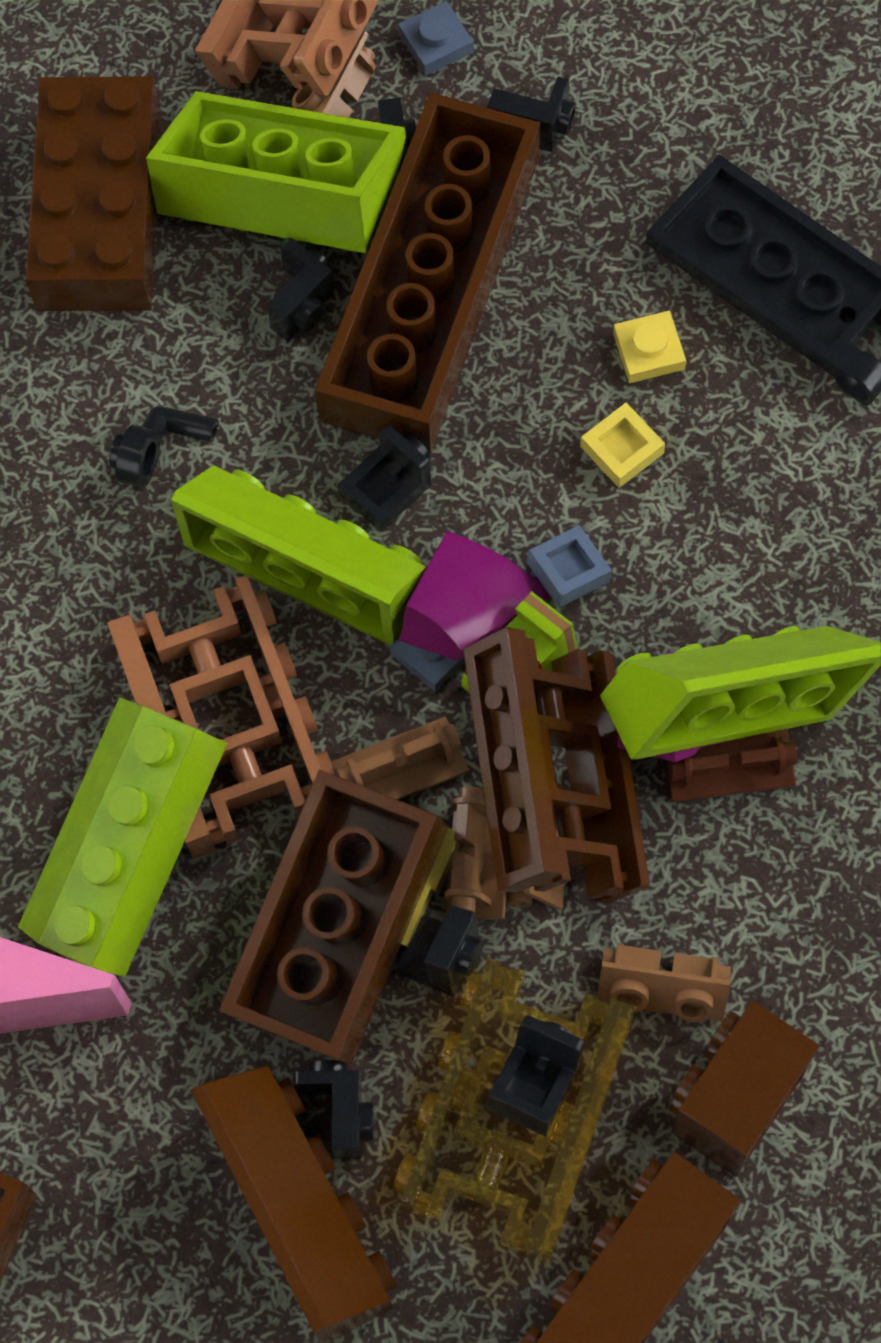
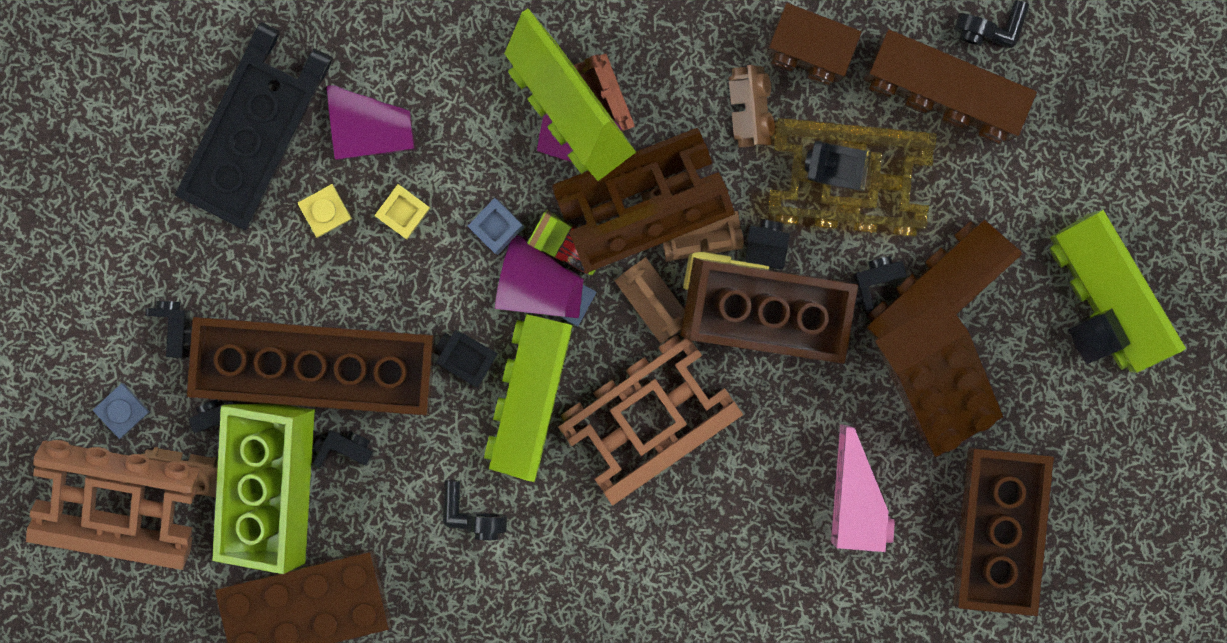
camera: 110 degrees left, 20 degrees up
(121, 838) = (750, 457): lime slope -> none
(149, 1141) = (940, 378): none -> reddish brown brick
(760, 425) = (367, 126): none -> magenta slope

